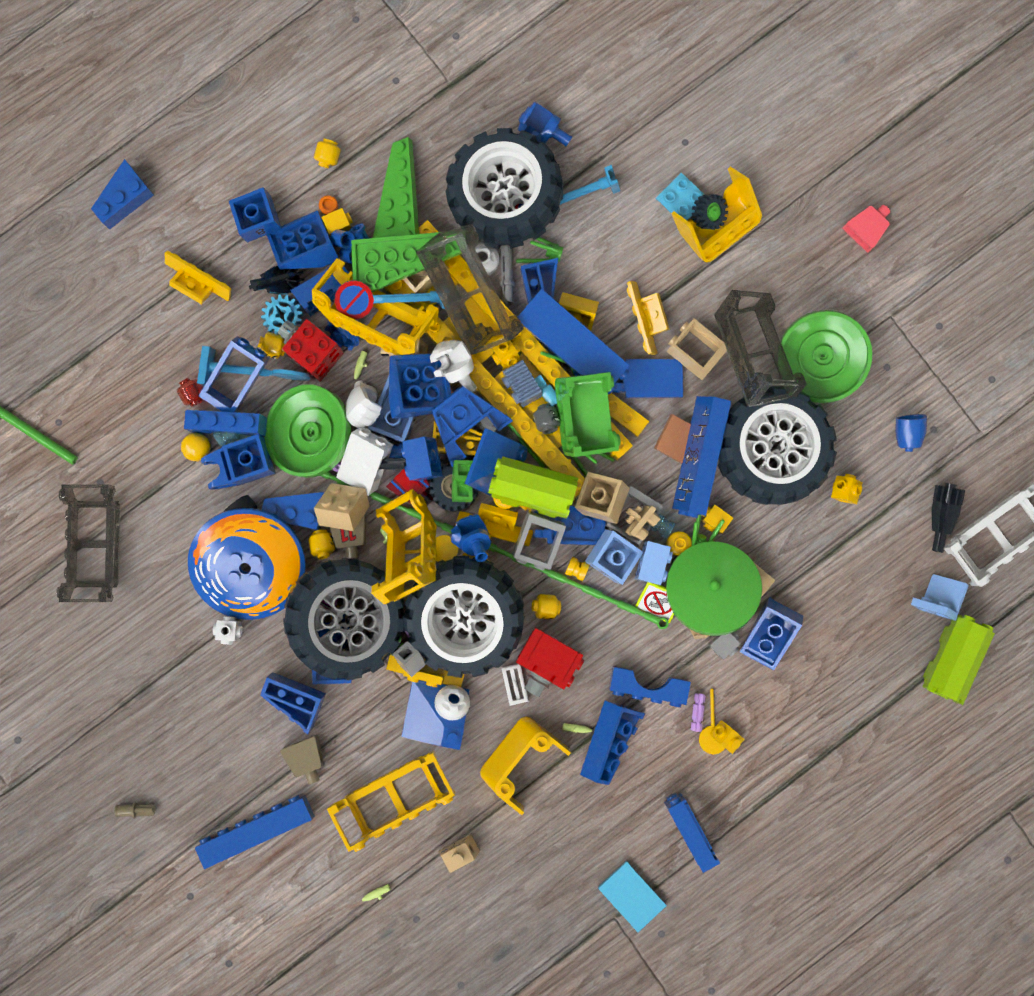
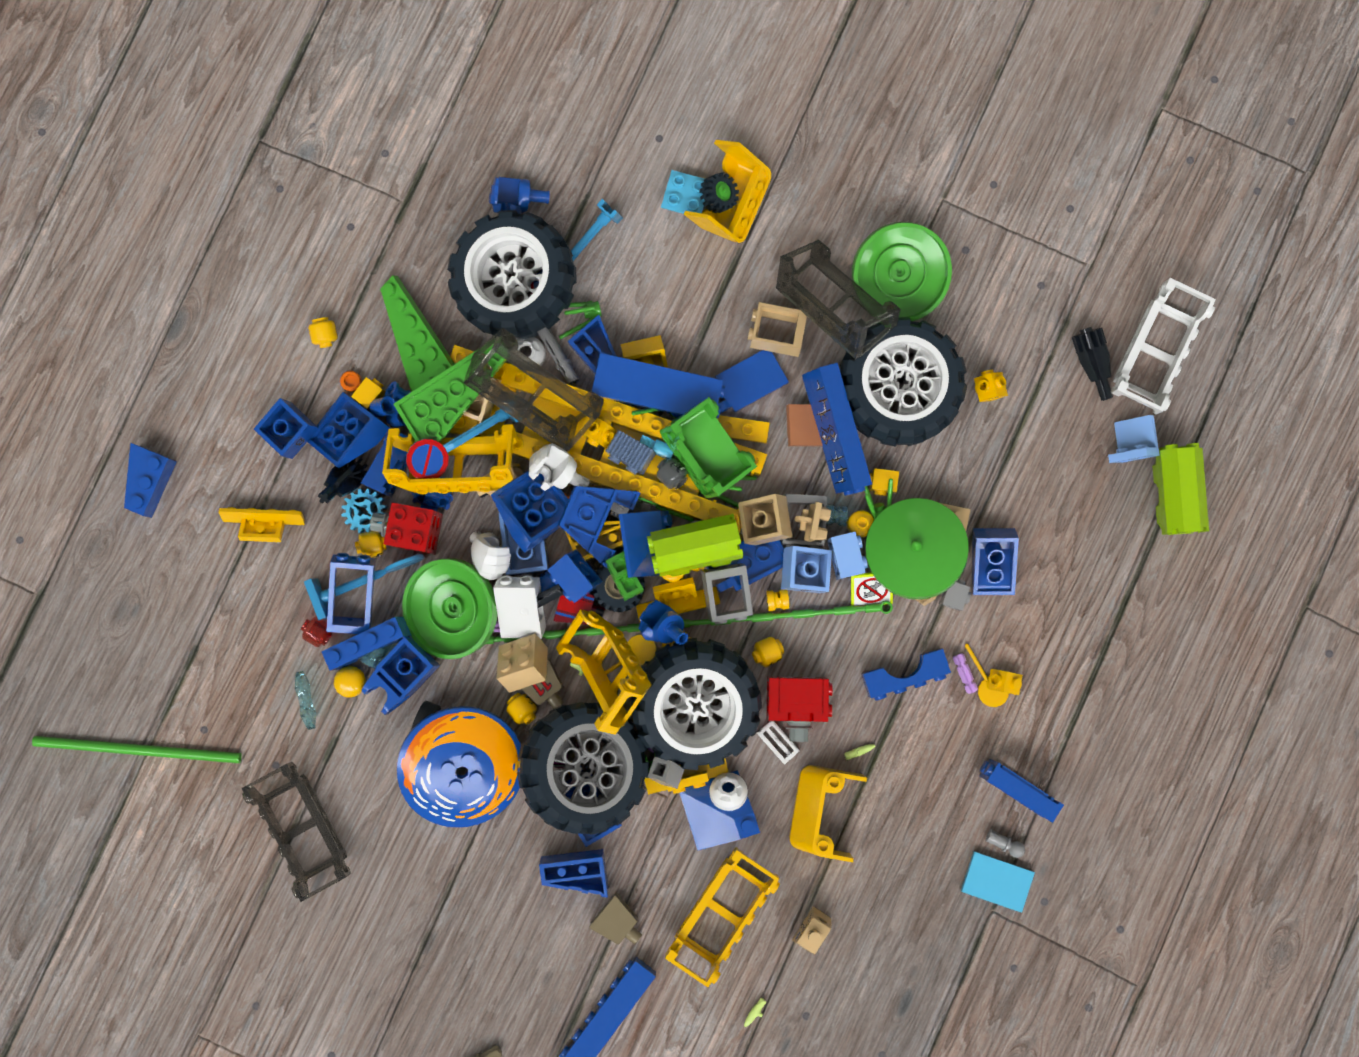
camera: 25 degrees left, 0 degrees up
(149, 450) = (303, 692): none -> clear light blue tile
(234, 627) = (482, 834): white brick -> none
(295, 509) = (478, 689): blue wedge -> none
(360, 364) = (464, 515): yellowish green helmet -> none
(609, 741) = (897, 747): blue wedge -> none
(649, 315) = (715, 321): yellow bracket -> none
(661, 877) = (1015, 848): none -> light grey pin
(868, 226) = (876, 126): coral torso -> none
(910, 431) = (1020, 299): blue helmet -> none

